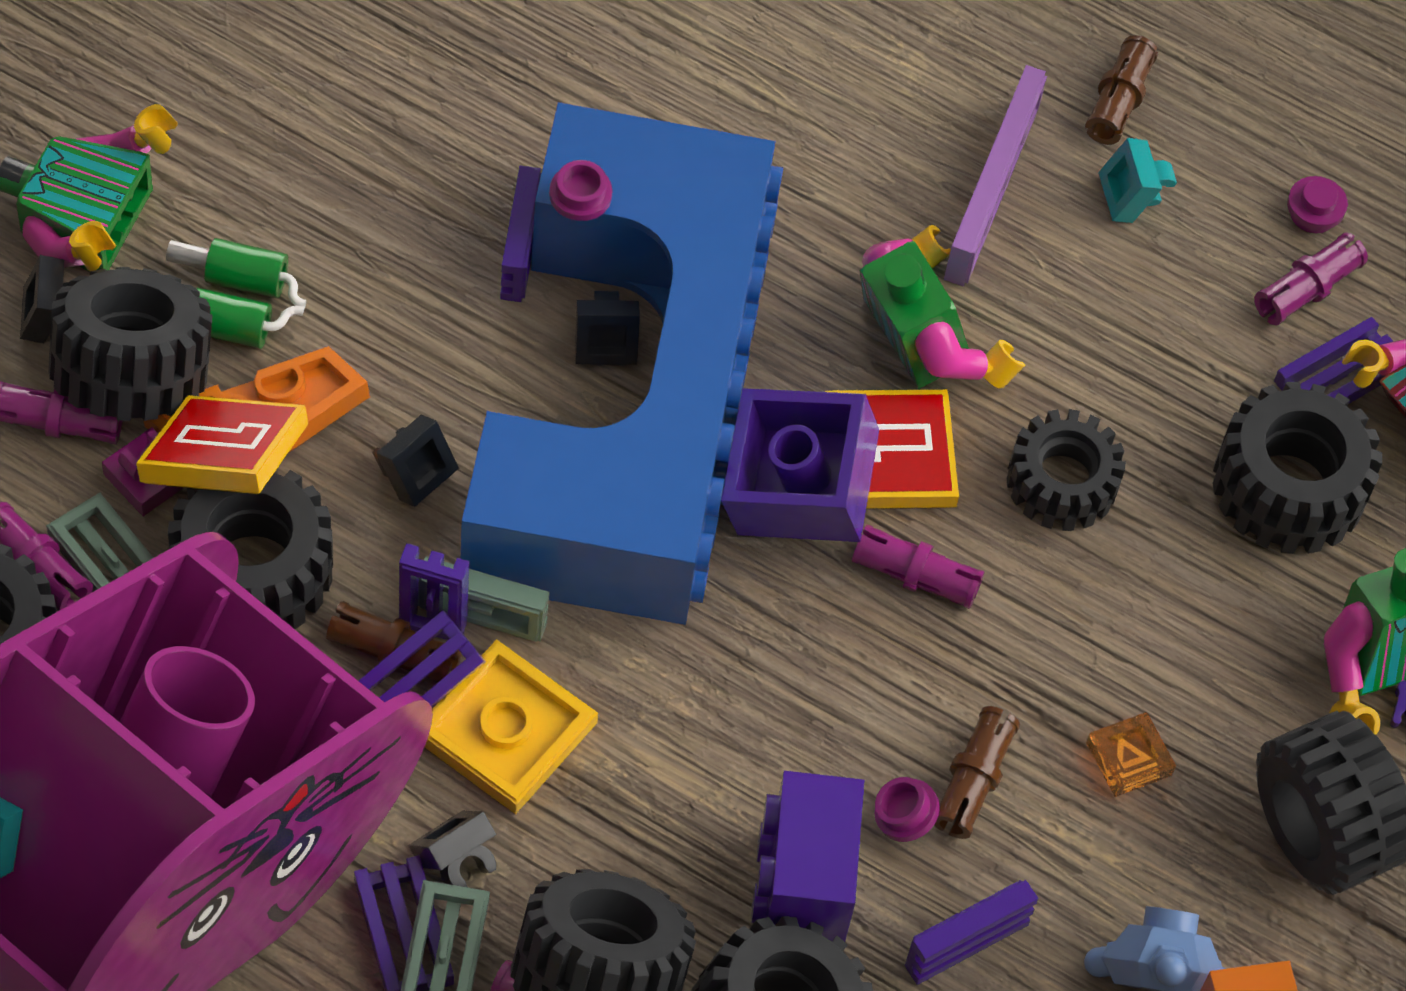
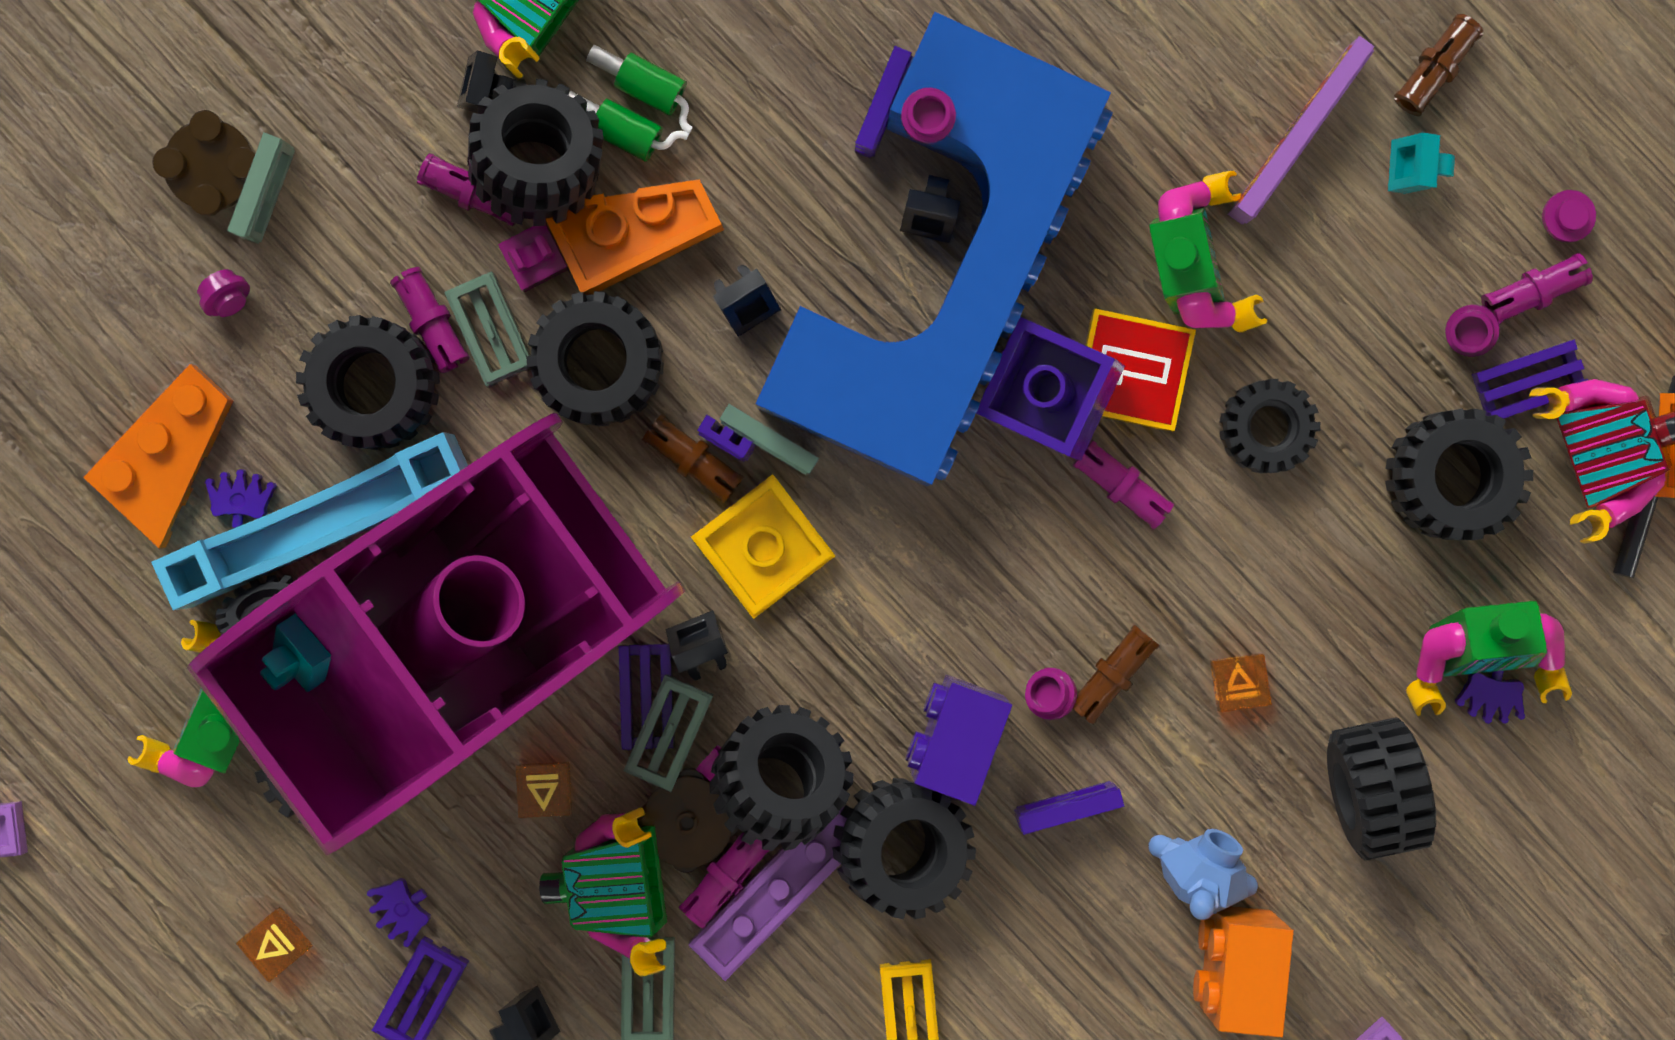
camera: 25 degrees right, 30 degrees up
(222, 444) = (587, 273): tile -> none
(456, 642) = (663, 517): dark purple tile -> none
(1256, 330) = (1472, 330): none -> magenta plate

